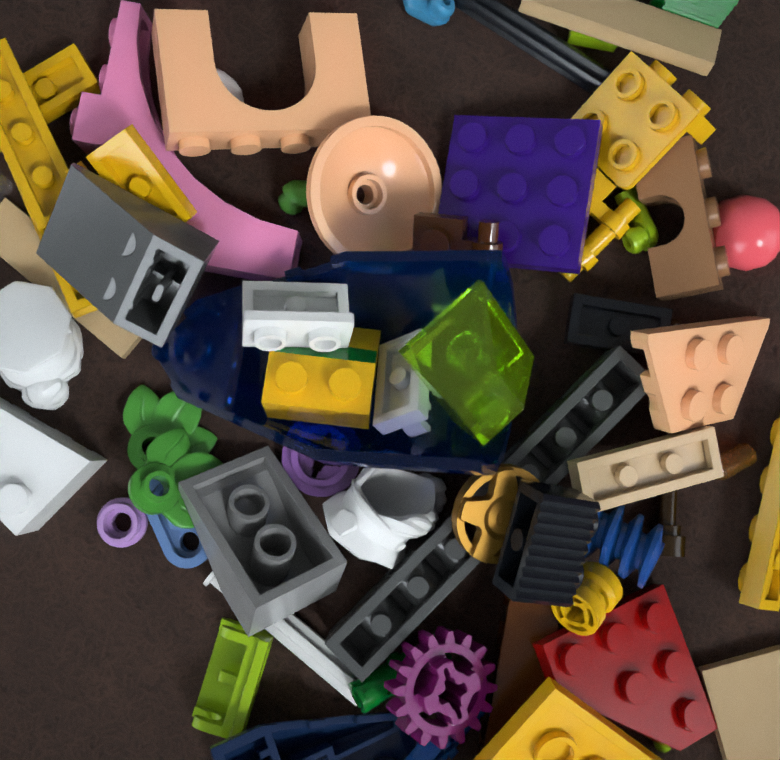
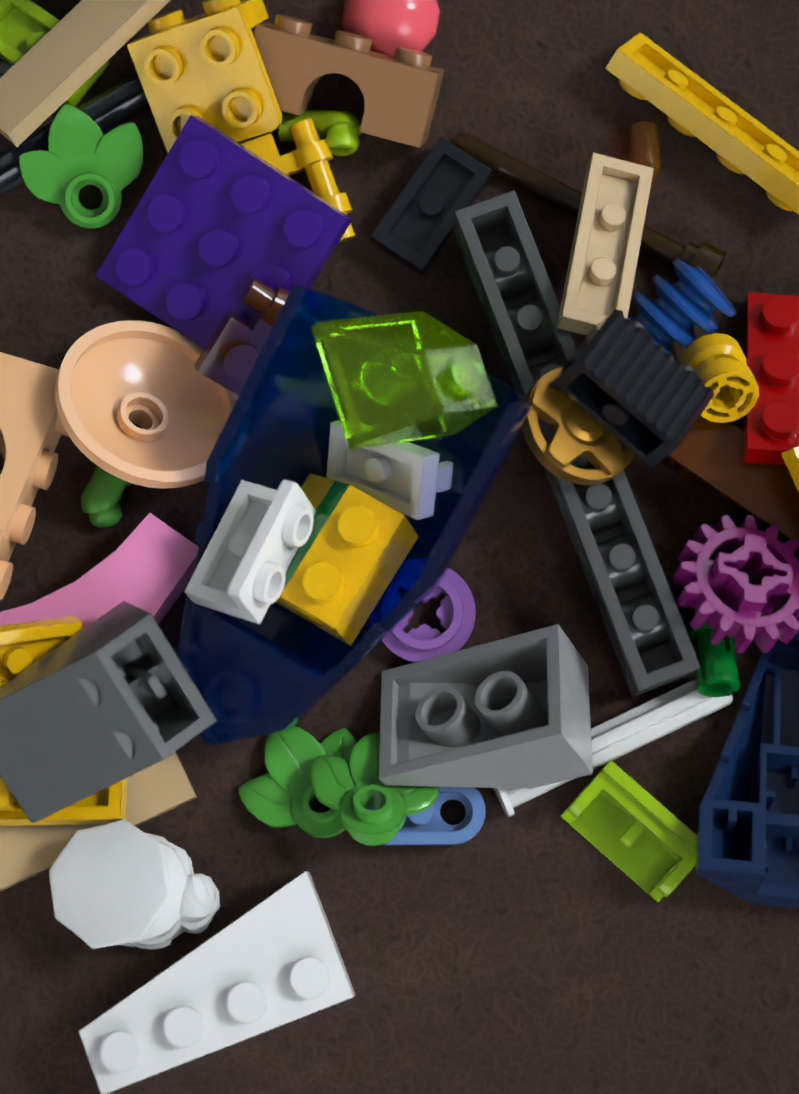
camera: 65 degrees left, 5 degrees down
(107, 527) = (371, 880): lavender plate -> none
(384, 512) = (520, 559): white piece -> none
(535, 64) = (84, 157): none -> bright green plate
(698, 369) = (522, 138): light nougat wing -> none

